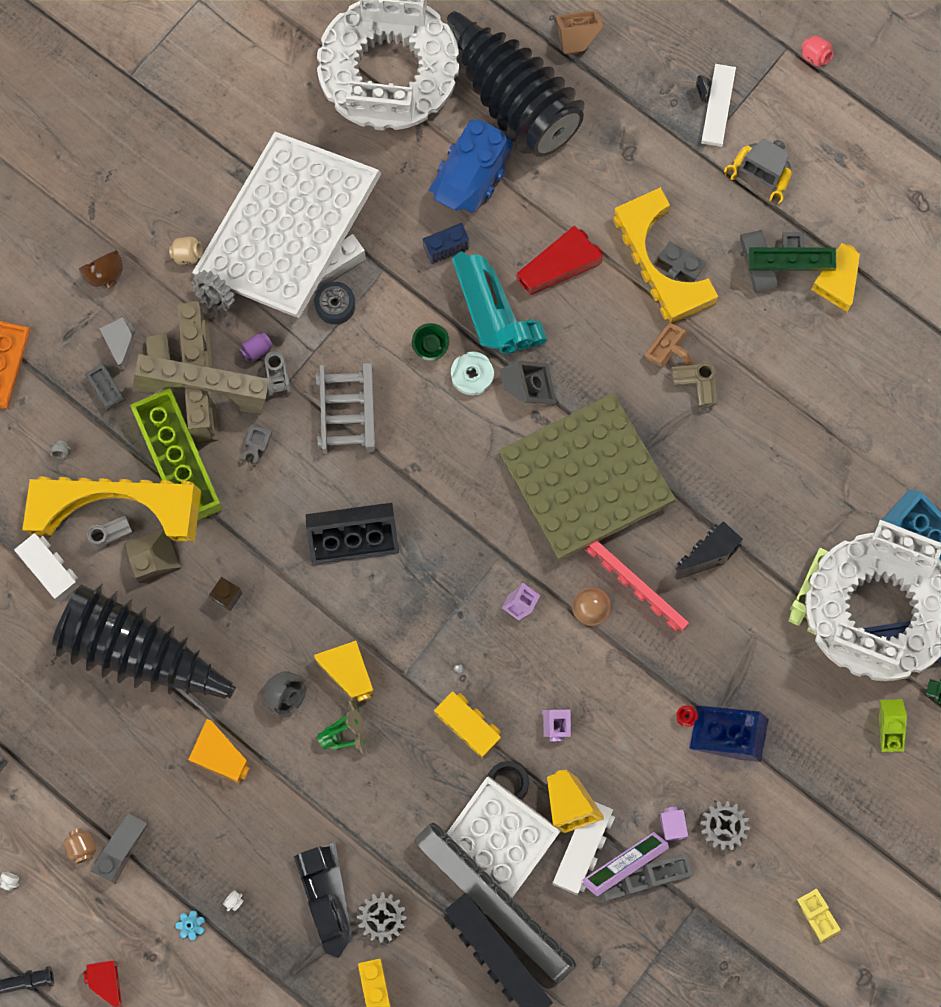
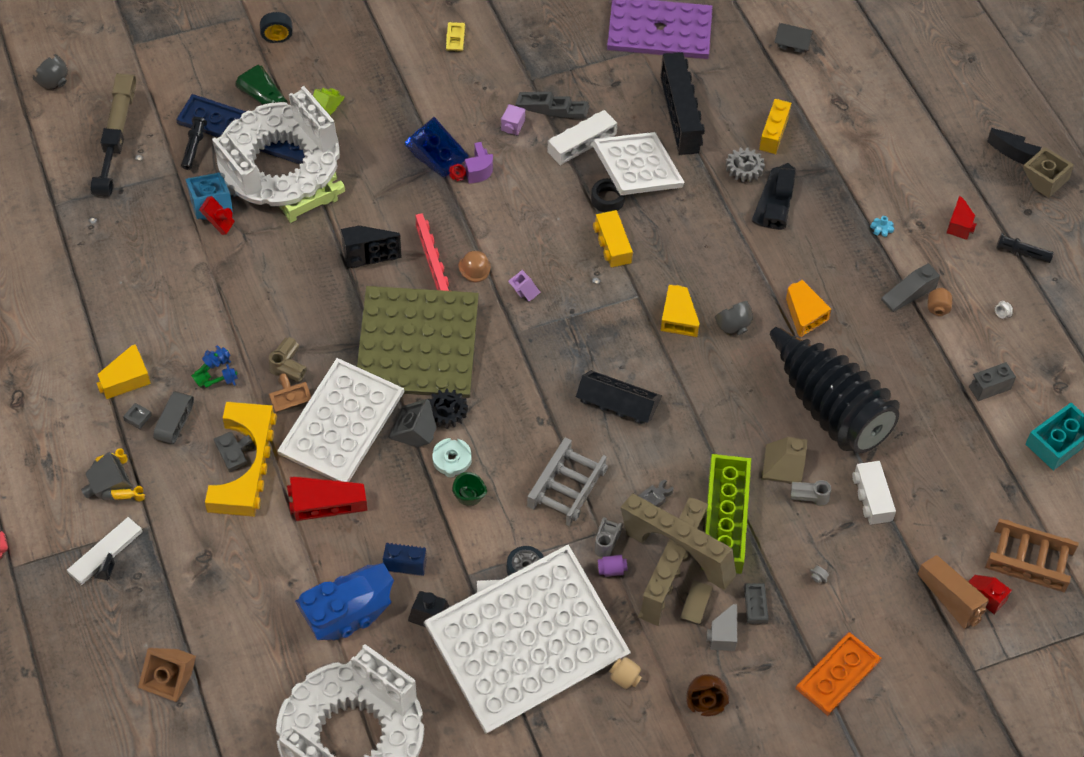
camera: 155 degrees left, 20 degrees down
(55, 500) = (841, 533): yellow arch -> none
(213, 291) = (623, 618): light grey gear -> none
(225, 594) = (741, 402): dark brown brick -> none
(233, 901) = (844, 222): white plate -> none
(354, 721) = (717, 278): plant -> none
(390, 205) = (425, 607): none -> black torso
(494, 325) = (406, 484): teal panel -> none
(496, 902) = (663, 133): dark grey beam -> none
(502, 415) = (446, 406): none -> black gear
(517, 88) = (256, 626): black cone -> none
(563, 722) = (550, 209): lavender brick -> none
(571, 802) = (573, 154): yellow slope -> none
(598, 344) = (341, 421): none -> white plate
(625, 864) = (561, 110): tile -> none
(664, 739) = (479, 167): none -> medium lavender brick
(731, 834) = (479, 104): light grey gear -> none
(762, 323) = (211, 360): none -> blue plant
(792, 259) = (150, 392): dark green plate -> none
(889, 499) = (218, 216): none -> red tile

